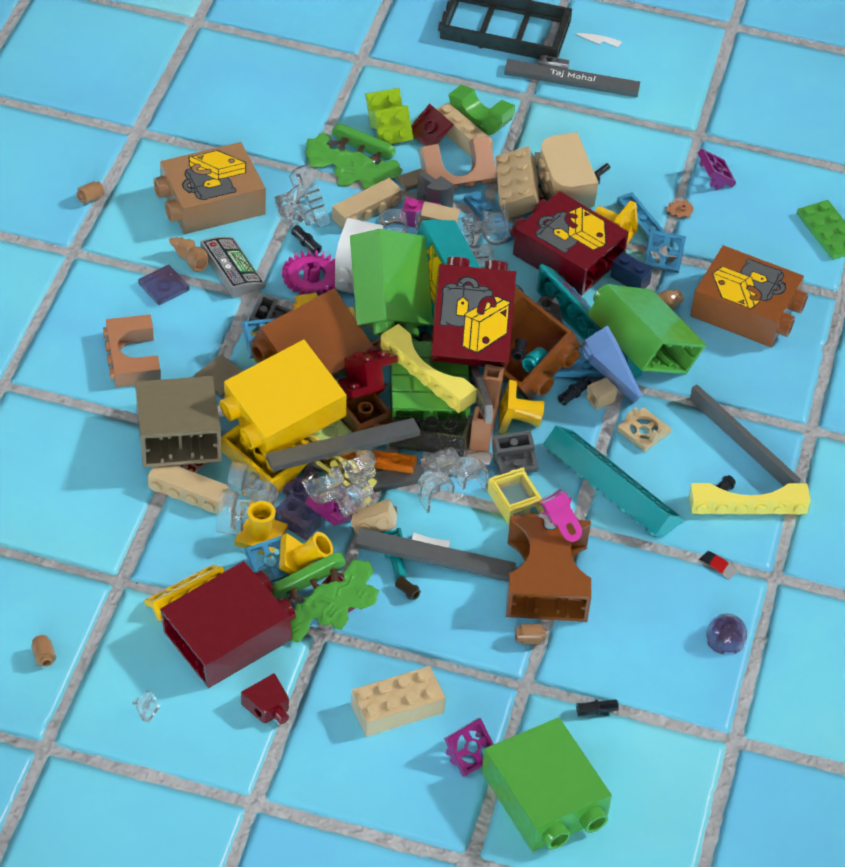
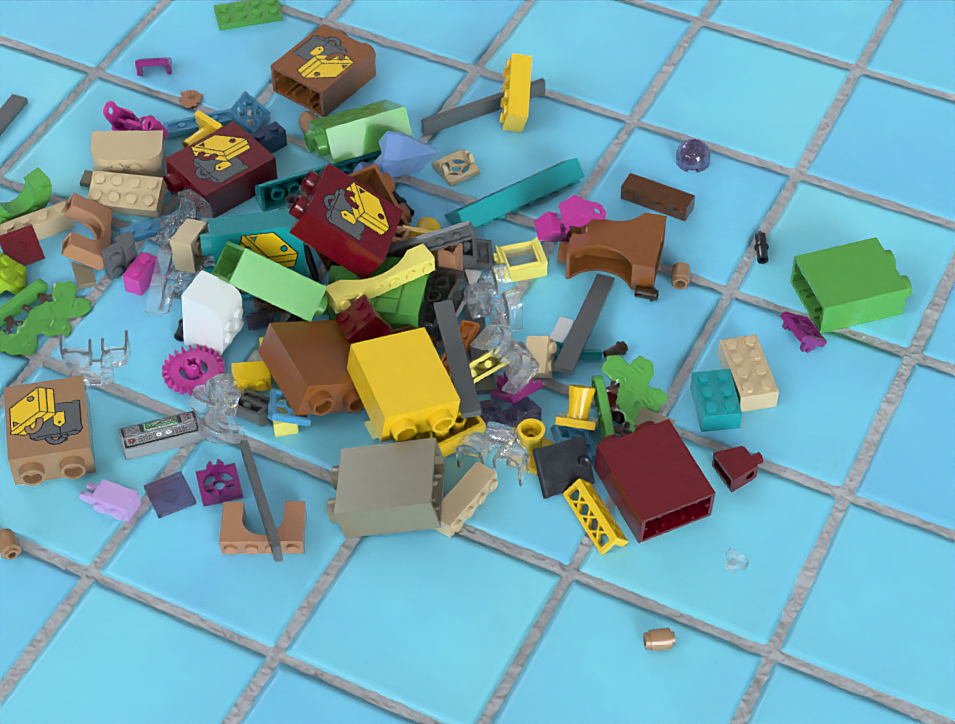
camera: 75 degrees left, 0 degrees up
(147, 247) = (112, 499): none -> lavender hinge
(154, 337) = (261, 501): none -> dark grey tile
(183, 325) = (217, 495): none -> magenta piece
(195, 256) = (143, 460): medium nougat animal -> none
(221, 370) = (314, 459): dark tan tile -> none
(233, 547) = (559, 465): none -> black container
(242, 294) = (219, 404): none -> clear piece
(306, 239) = (144, 368): black pin -> none
(306, 618) = (648, 415): none -> dark tan tile
(350, 671) = (715, 400): none -> teal brick
(368, 202) = (111, 312): tan brick -> none
(497, 611) = (647, 293): none -> dark brown pin
(601, 393) = (410, 185): tan brick -> none
(619, 167) = (125, 120): none -> dark pink piece
(646, 604) = (657, 197): none -> reddish brown brick
(709, 499) = (548, 137): light yellow arch -> none
(719, 564) = (613, 150): sticker -> none
(727, 483) = (532, 128): black pin -> none
(754, 451) = (516, 92): none -> yellow brick

